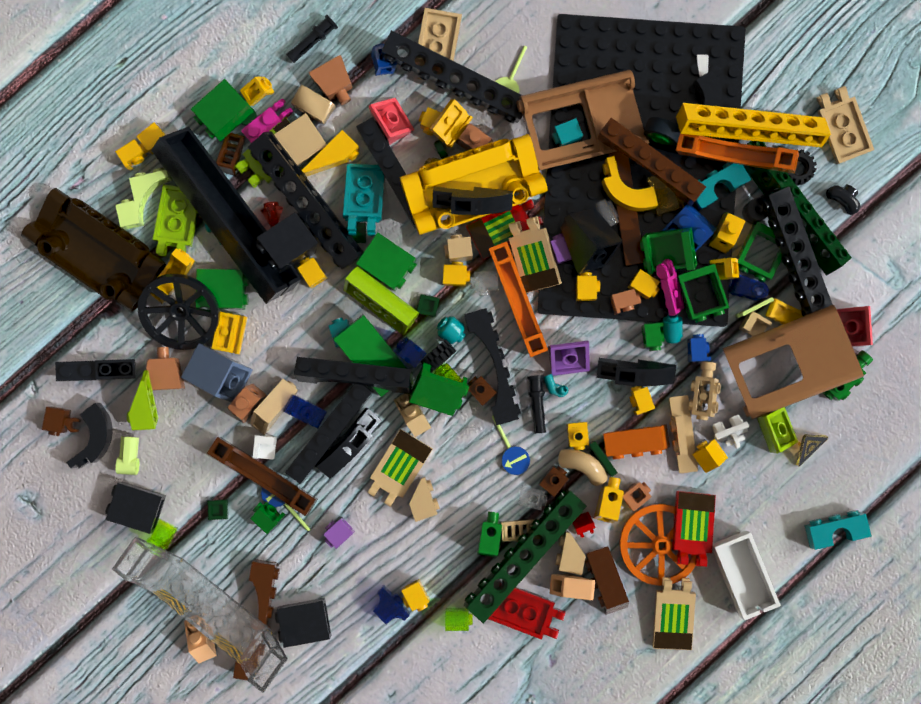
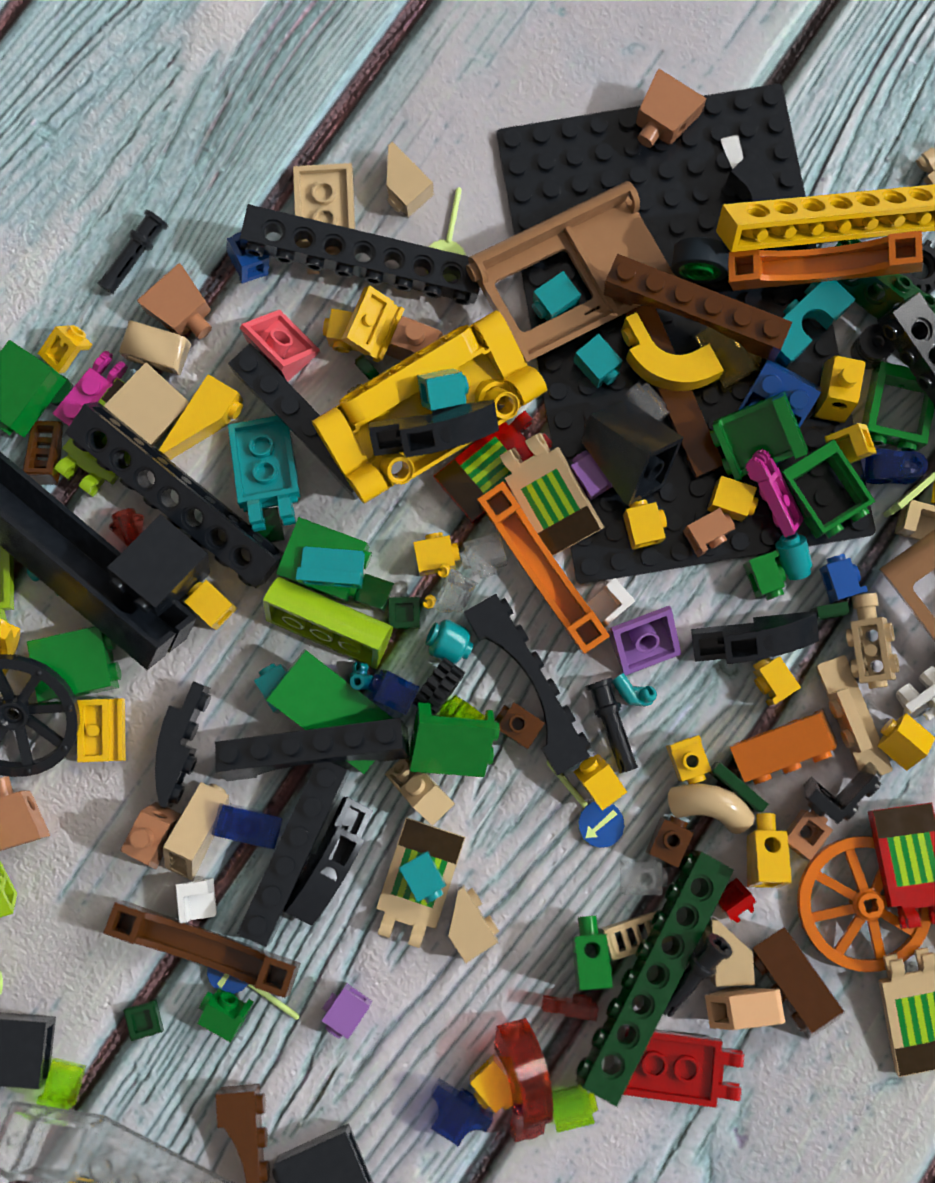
camera: 10 degrees left, 5 degrees down
(216, 373) = (93, 799): sand blue slope -> none
(269, 358) = (173, 756): none -> black slope
(390, 268) = (331, 567): none -> teal panel
(392, 339) = (359, 678): none -> teal arm
(402, 466) = (423, 878): none -> teal brick
(412, 289) = (374, 593): none -> dark green slope
(435, 596) = (527, 1078): none -> clear red arch
(458, 249) = (431, 512): tan brick -> none
(461, 301) = (453, 594): none -> clear piece
(476, 563) = (578, 1007): none -> clear red plate
(483, 176) = (443, 389): none -> teal brick
(492, 36) = (406, 184): none -> tan slope
(521, 435) = (600, 781): none -> yellow brick
(553, 556) = (701, 966): none -> black pin
(554, 329) = (611, 602): none -> white panel
(584, 180) = (598, 361): none -> teal brick
(652, 480) = (845, 803): none -> black bracket
(667, 29) = (667, 110): none -> nougat torso
(689, 367) = (831, 611): none -> dark green tile

